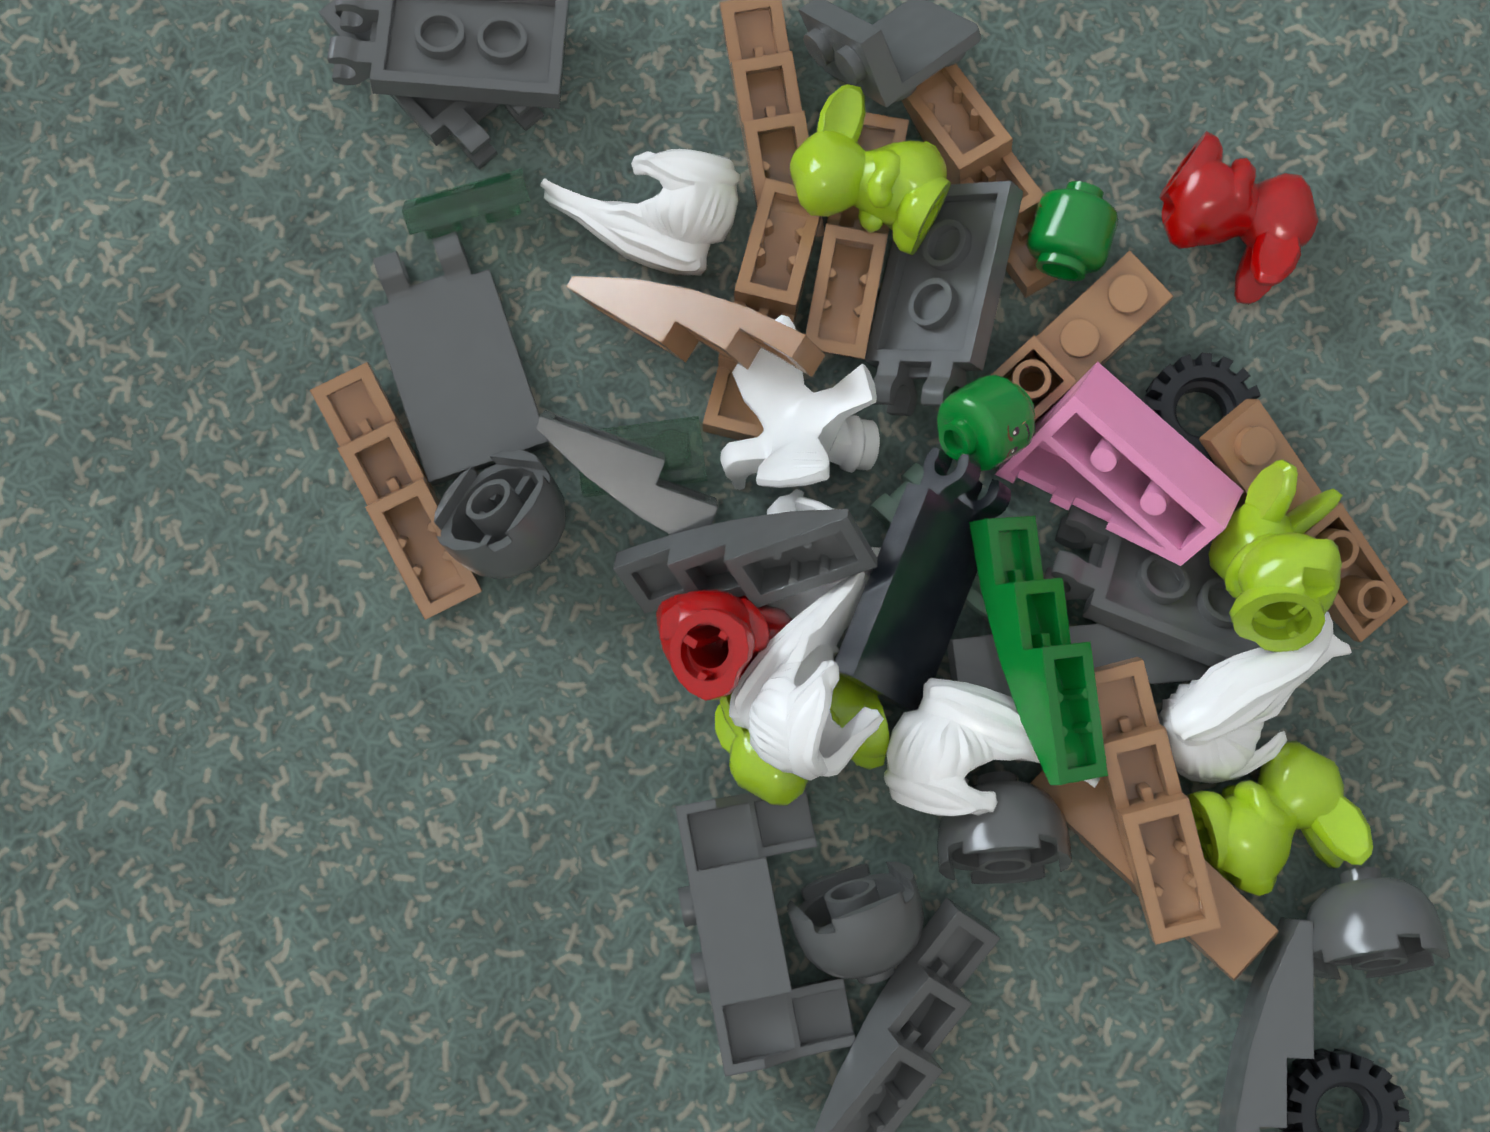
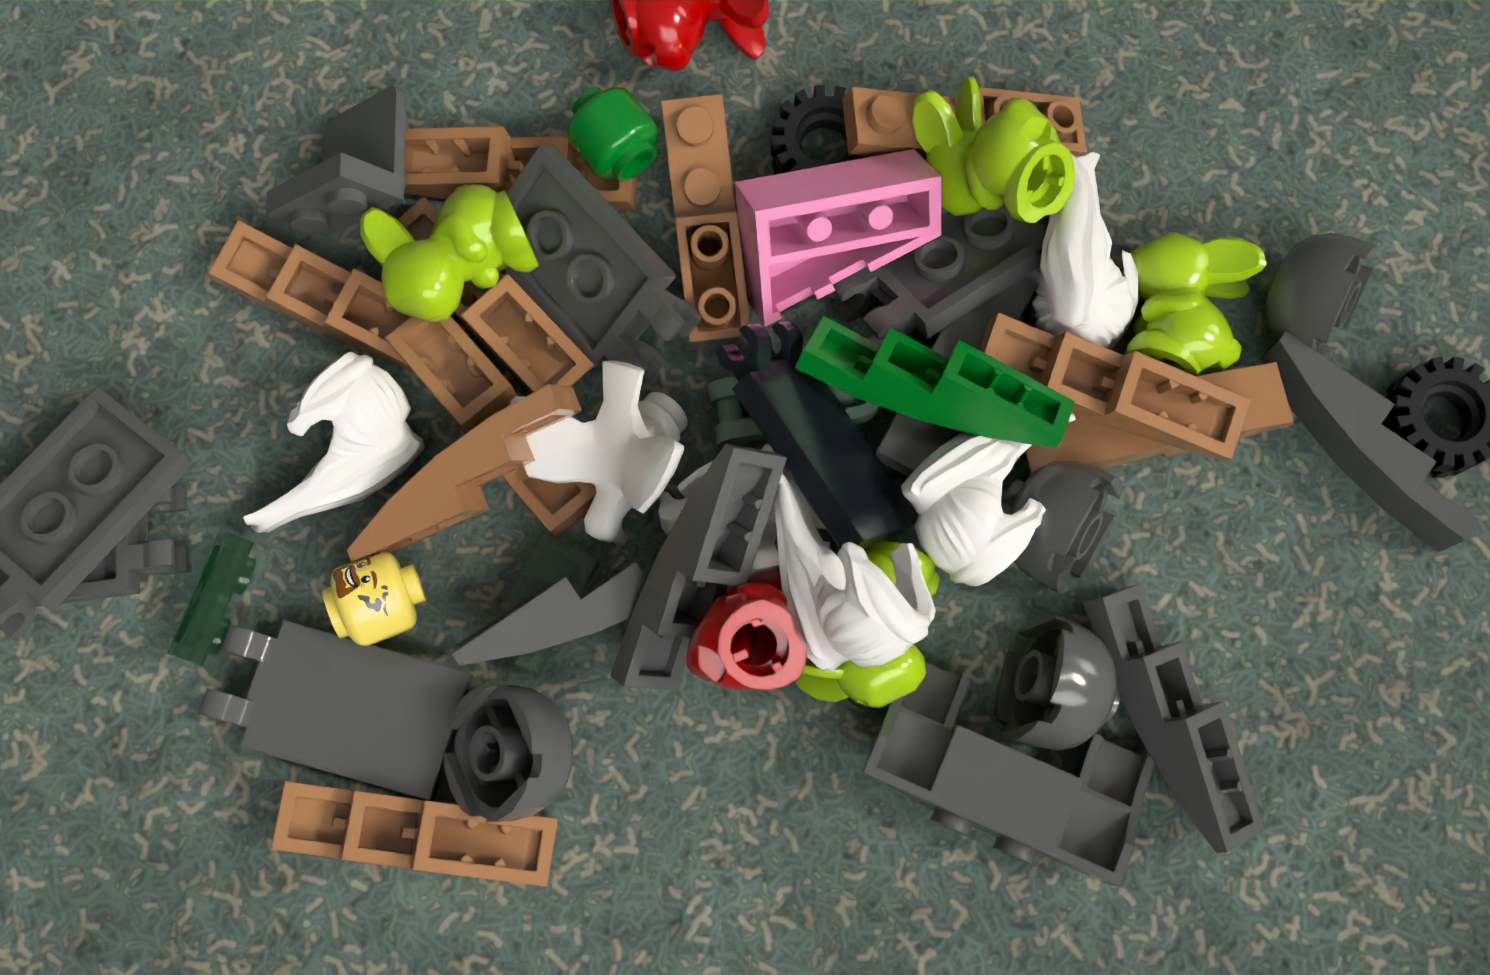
camera: 60 degrees left, 5 degrees down
(551, 324) = (373, 598): none -> light yellow head
(986, 421) = (721, 296): green head -> none

